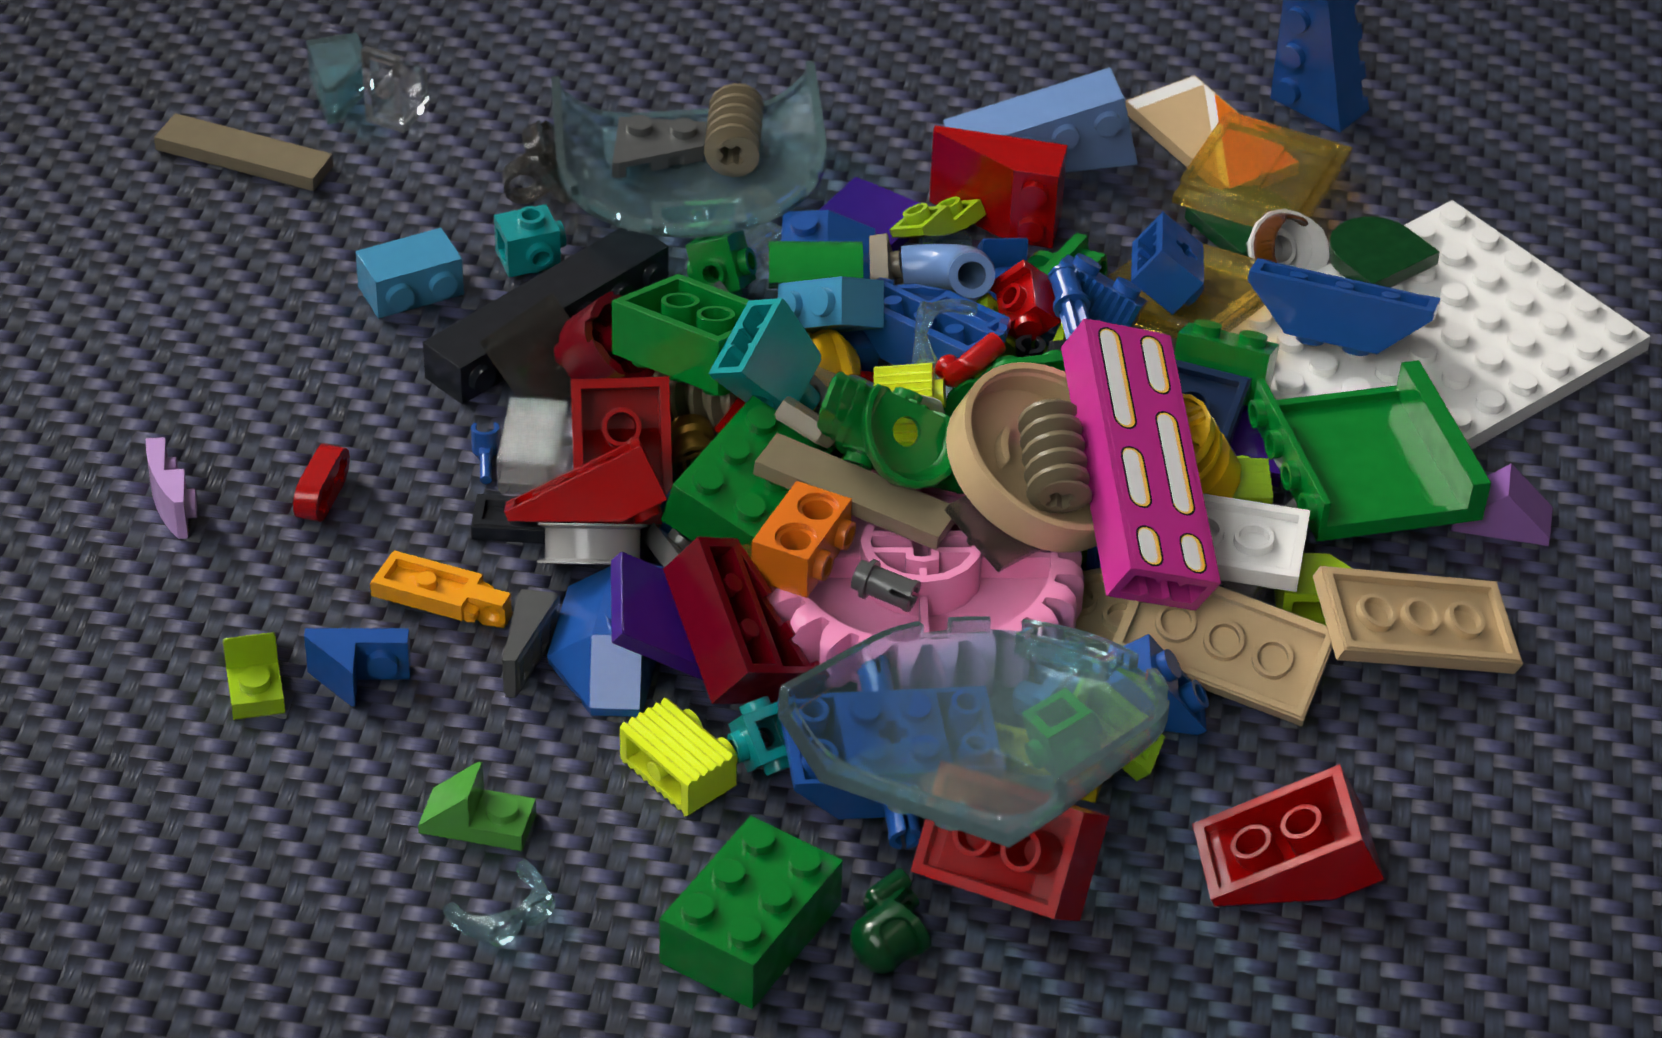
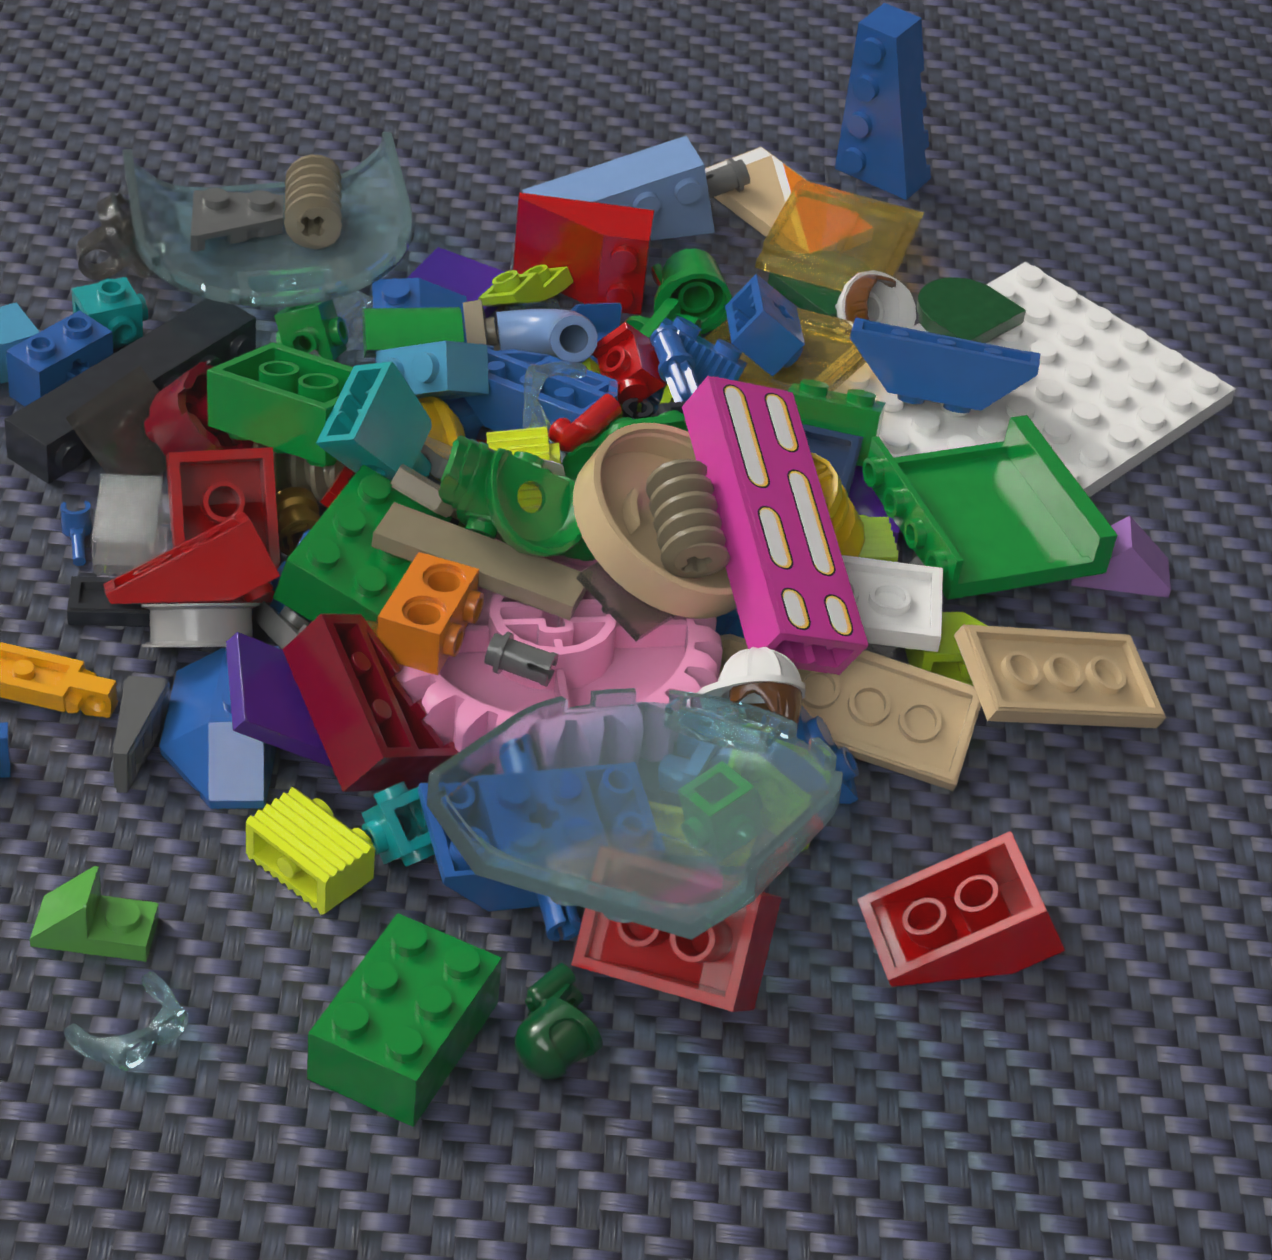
camera: 10 degrees left, 0 degrees up
(476, 281) = (56, 356): none -> blue brick
(1108, 220) = (697, 283): none -> green hat
(1112, 613) = (761, 680): none -> white piece
(1151, 110) = (727, 178): none -> dark grey pin

